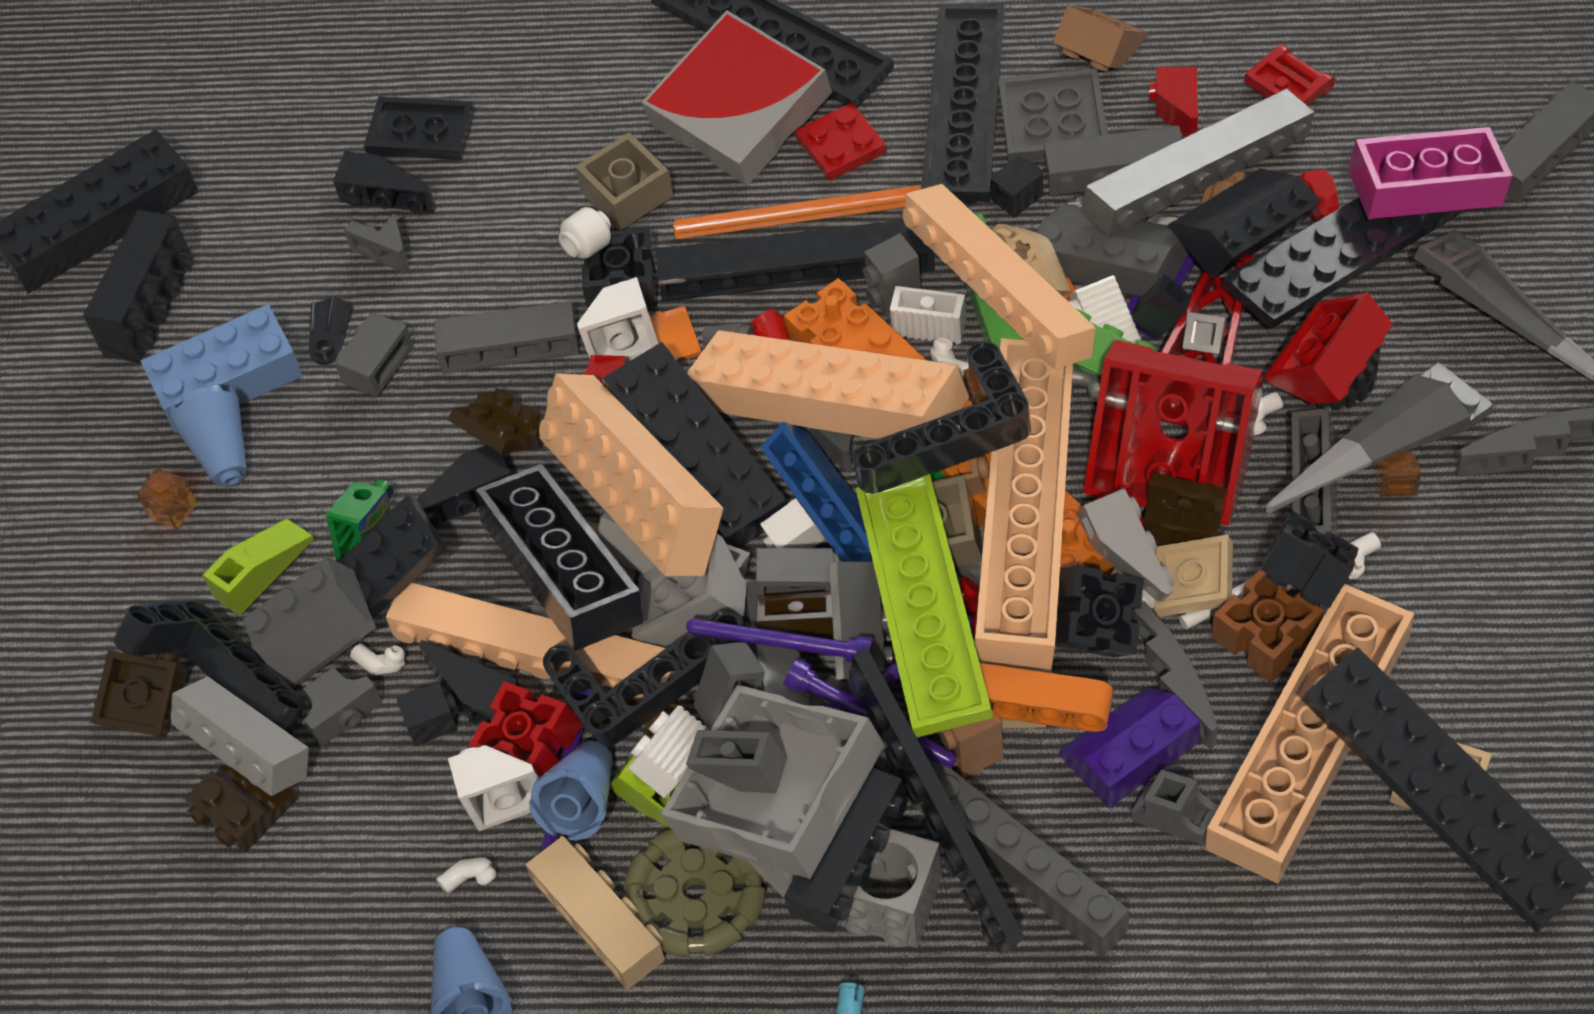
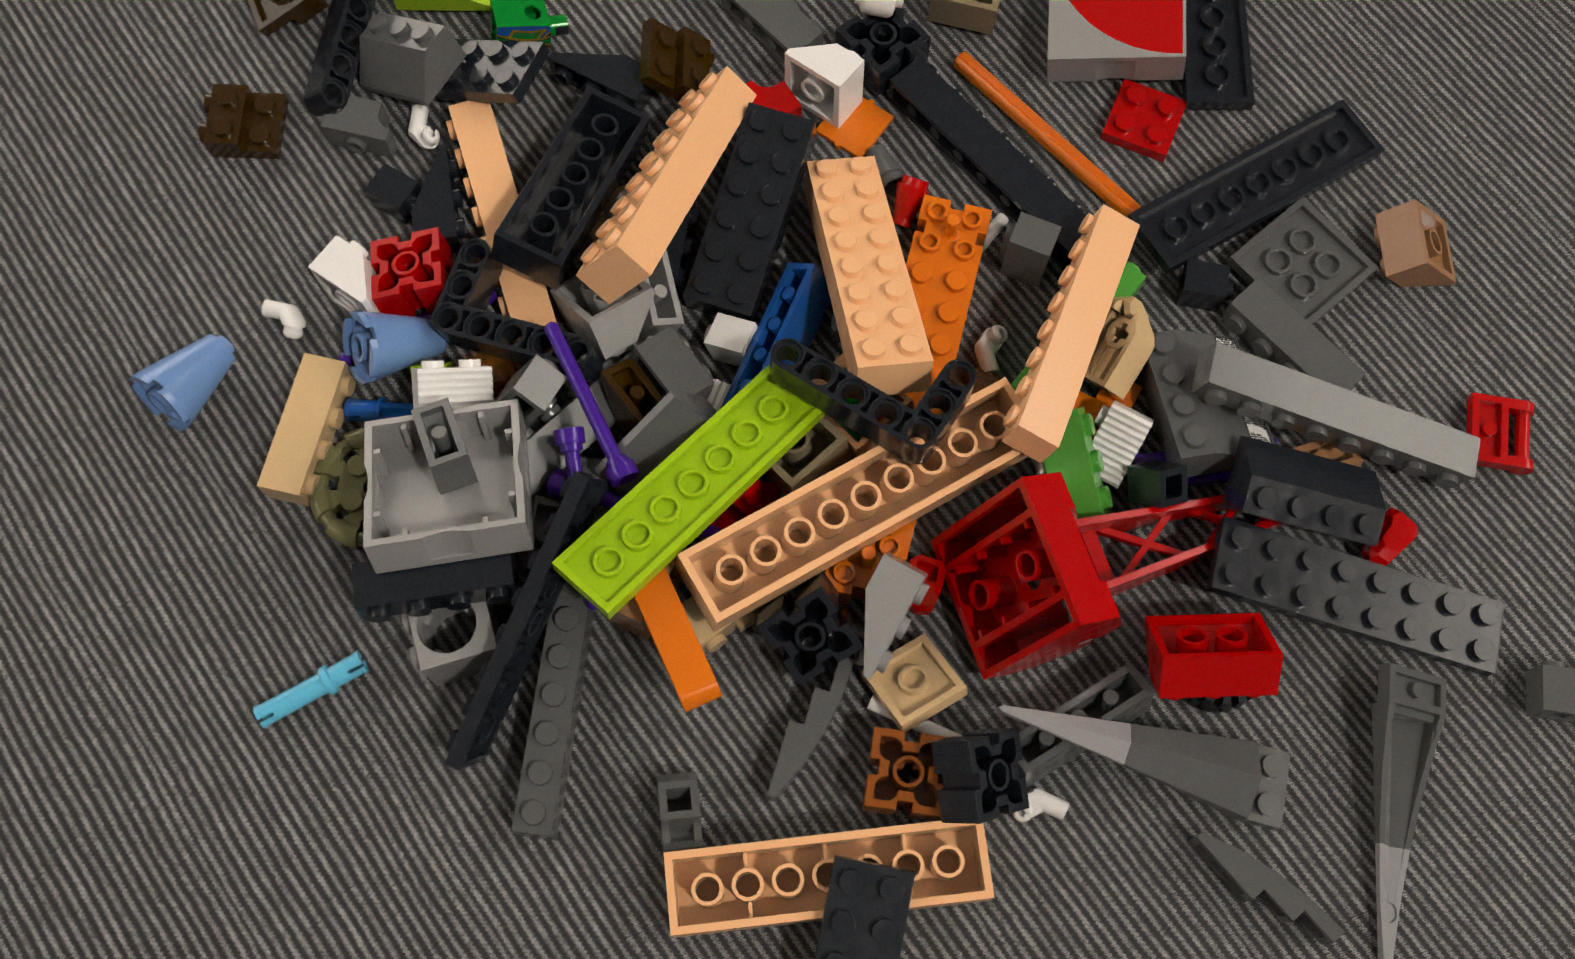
camera: 45 degrees right, 15 degrees up
(239, 735) = (284, 81): light grey brick -> none
(627, 843) = (370, 410): none -> blue axle
(928, 314) = (1015, 302): white brick -> none
(1135, 746) = (724, 736): dark purple slope -> none
(1176, 97) = (1400, 353): red slope -> none
(1182, 510) = (963, 635): dark brown slope -> none
(1204, 333) = (1147, 538): light grey brick -> none
(1267, 405) = (1129, 629): white arm -> none
(1398, 475) = (1143, 793): clear orange brick -> none
(1429, 172) = (1480, 622): dark pink brick -> none

